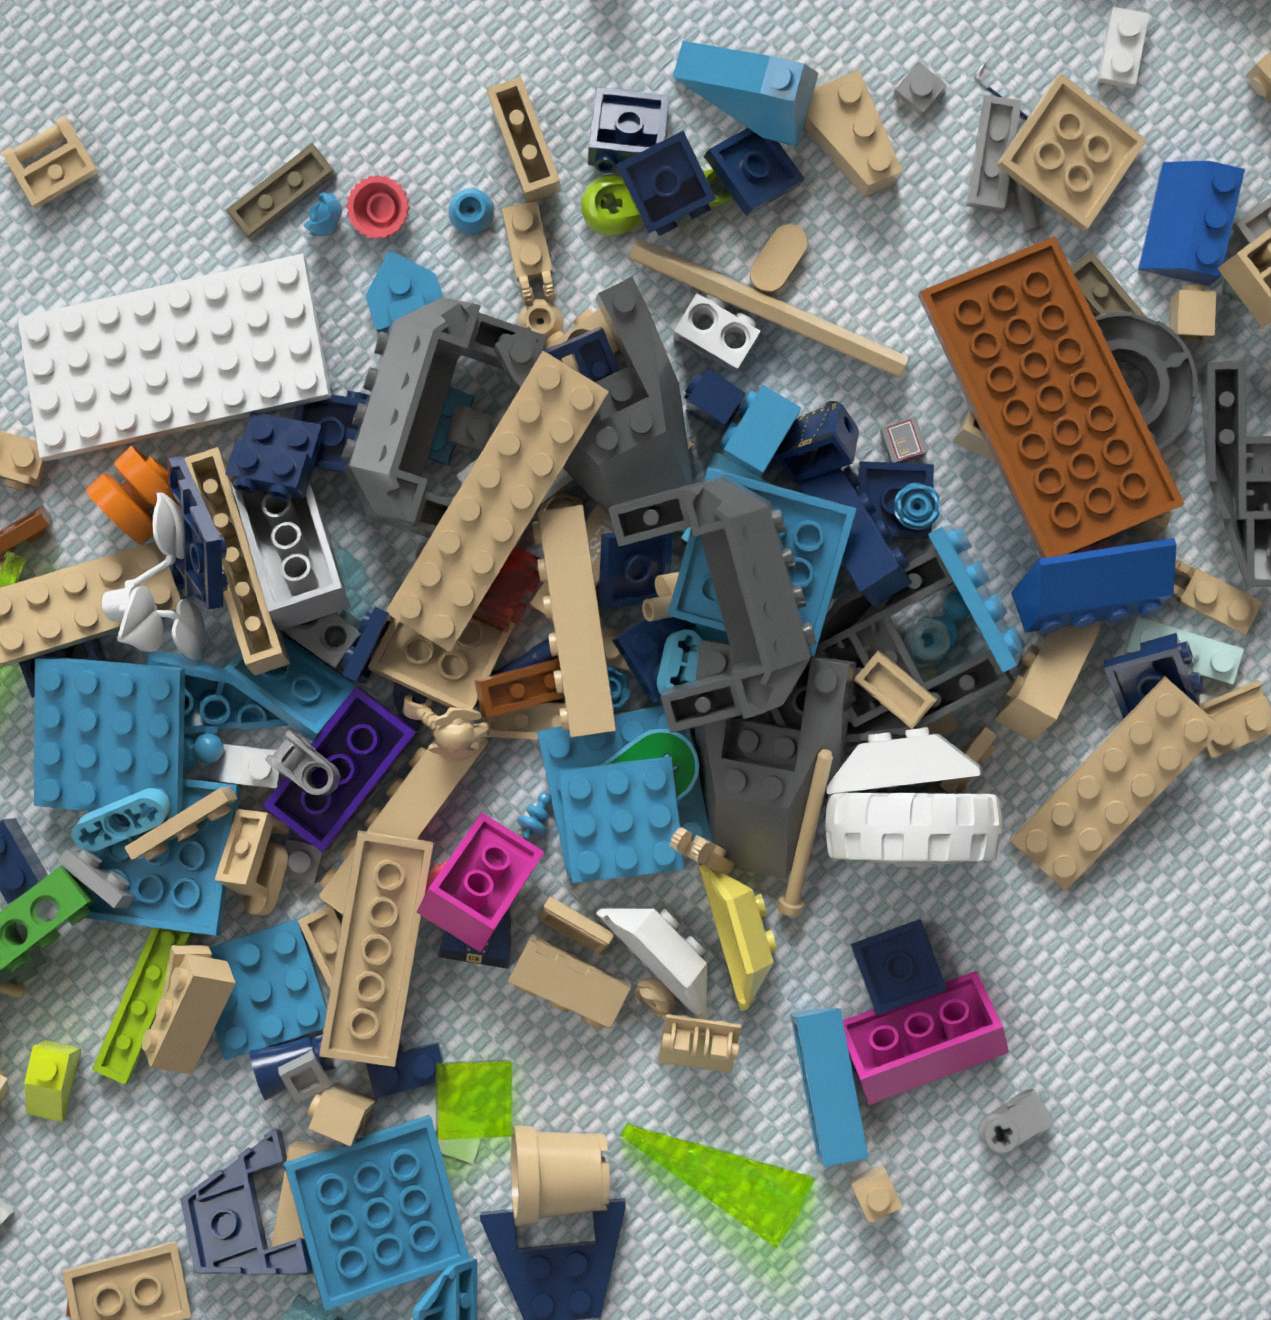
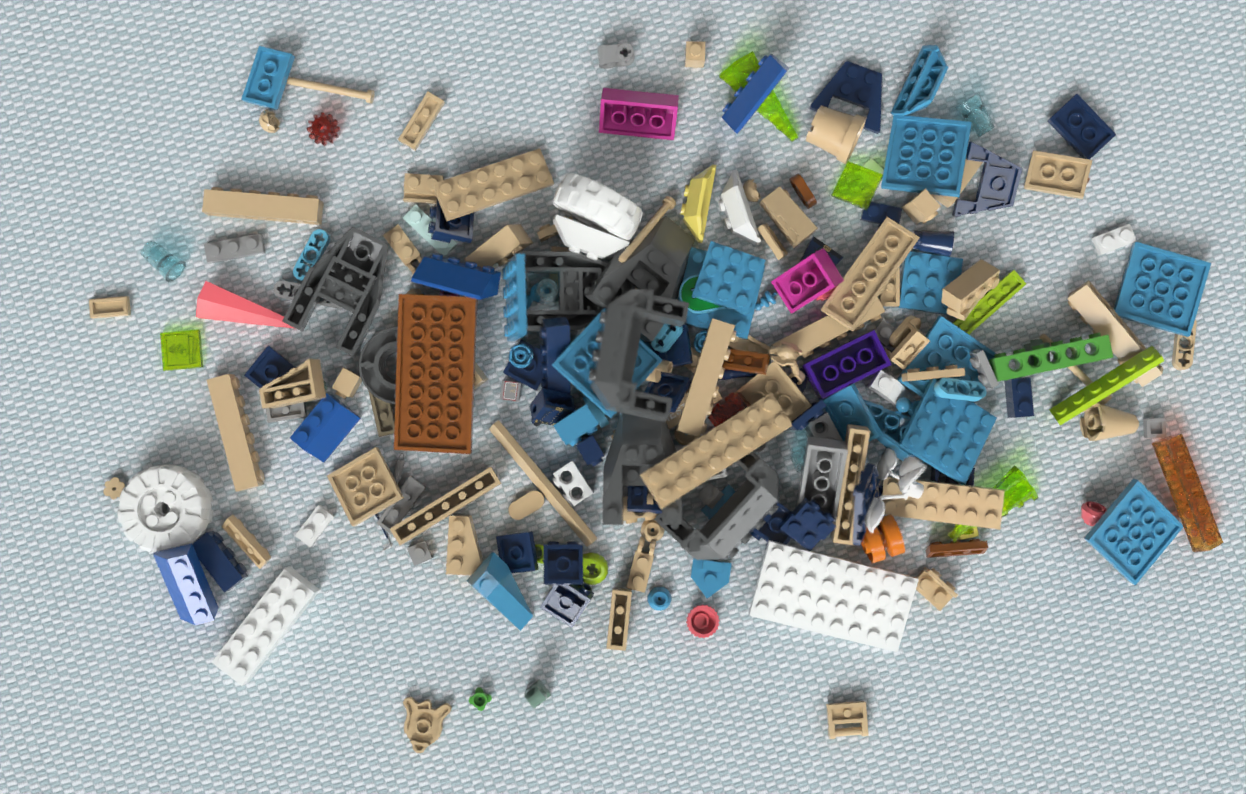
camera: 155 degrees left, 0 degrees up
(50, 1079) = (1047, 289): neon yellow slope -> none
(281, 192) = (744, 652): dark tan tile -> none
(299, 760) = (864, 374): light grey piece -> none
(304, 1077) = (931, 231): light grey plate -> none
(324, 215) = (730, 629): dark azure plate -> none
(564, 1042) = (803, 191): none -> dark orange beam
(699, 1043) = (741, 160): tan hinge -> none
(701, 851) = (699, 244): tan hinge -> none
(735, 1173) = (755, 92): none -> blue slope
(829, 1086) = (692, 112): dark azure brick -> none
(895, 689) = (574, 274): tan tile -> none
(898, 966) = (633, 151): dark blue plate -> none
(916, 184) = (445, 506): none -> tan brick

